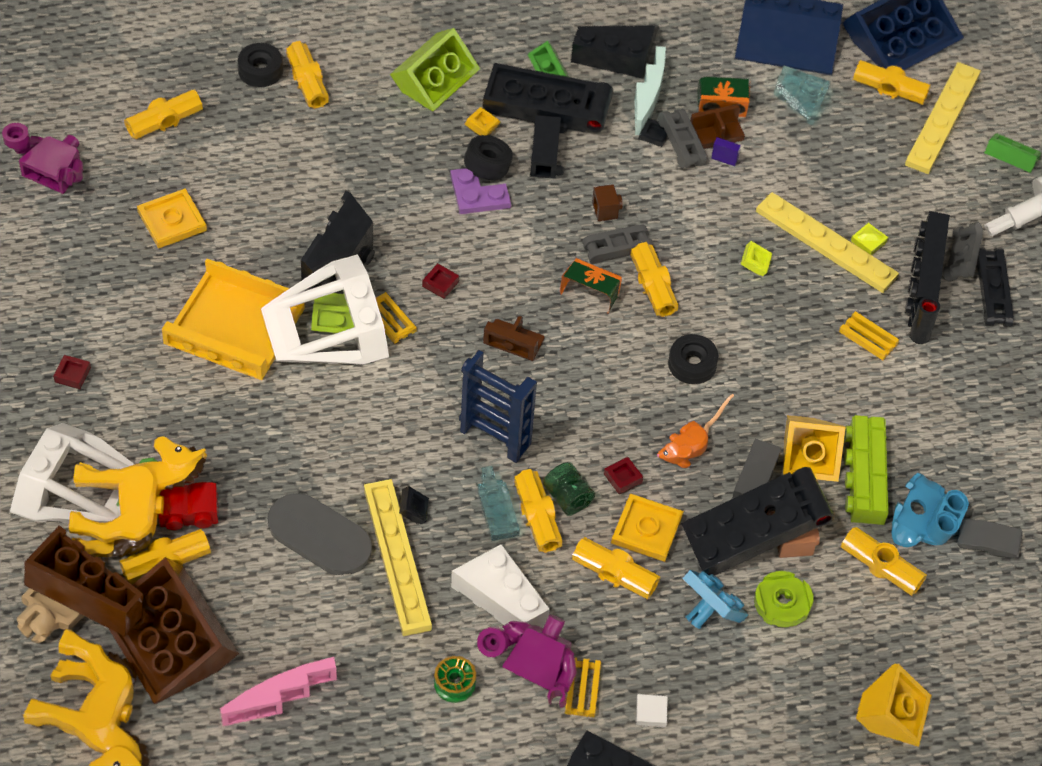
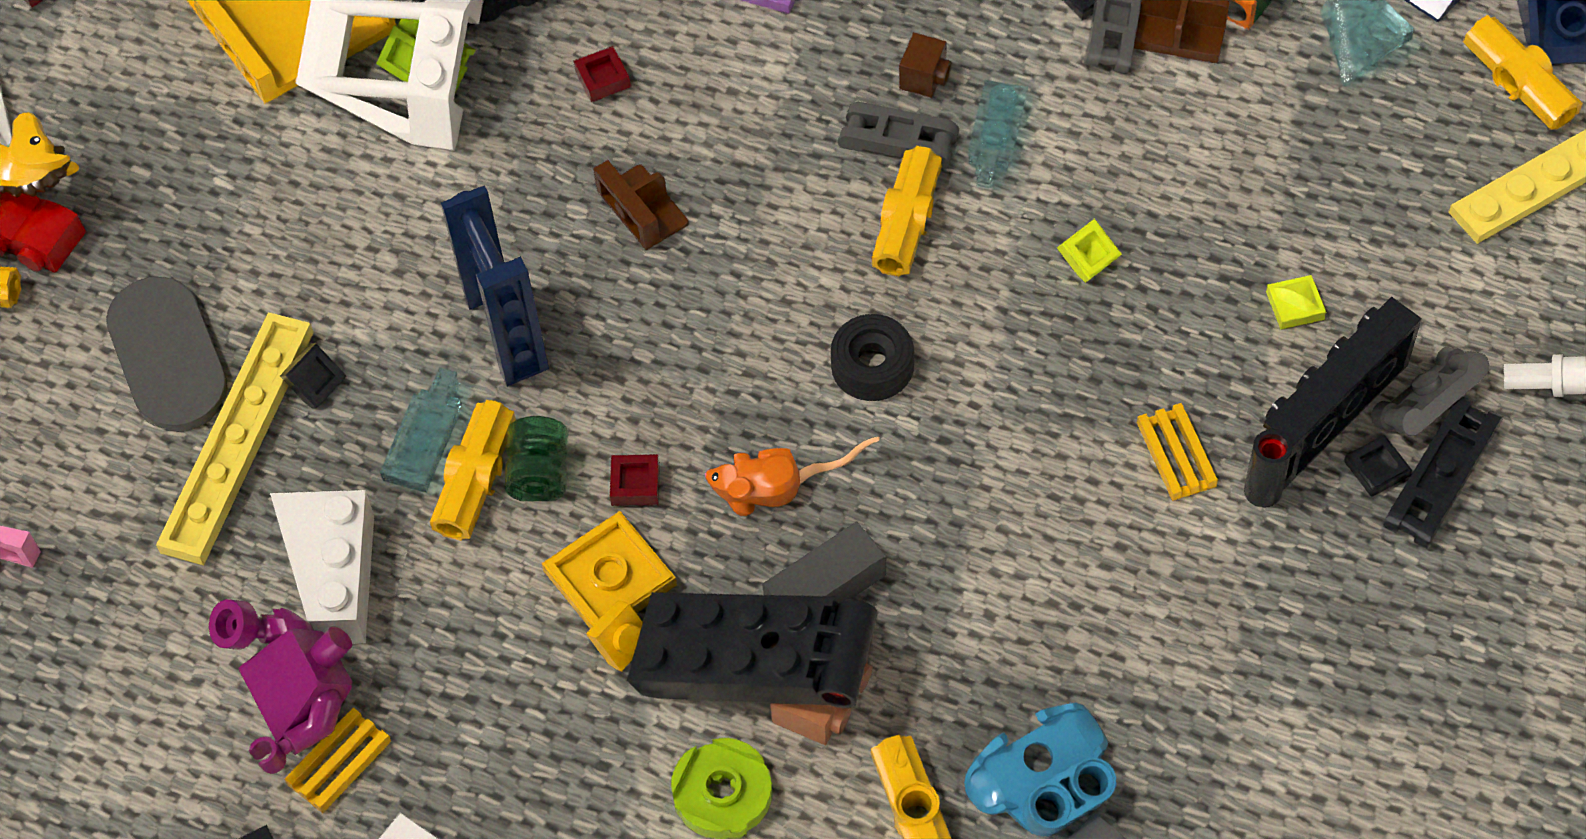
camera: 40 degrees right, 5 degrees up
(401, 333) = (498, 123): yellow tile -> none
(452, 668) = (154, 647): green wheel -> none
(594, 278) = (809, 171): dark green piece -> none
(616, 567) = (515, 610): yellow piece -> none
(664, 220) = (996, 129): none -> clear light blue hinge
(678, 552) = (617, 634): none -> yellow plate
(713, 600) = (607, 730): dark azure plate -> none
(725, 151) = (1166, 67): dark purple tile -> none
(813, 445) = (940, 579): yellow slope -> none
(827, 242) = (1225, 278): light yellow plate -> none
(867, 470) = (1003, 658): lime brick -> none
(962, 298) = (1377, 465): none -> black tile

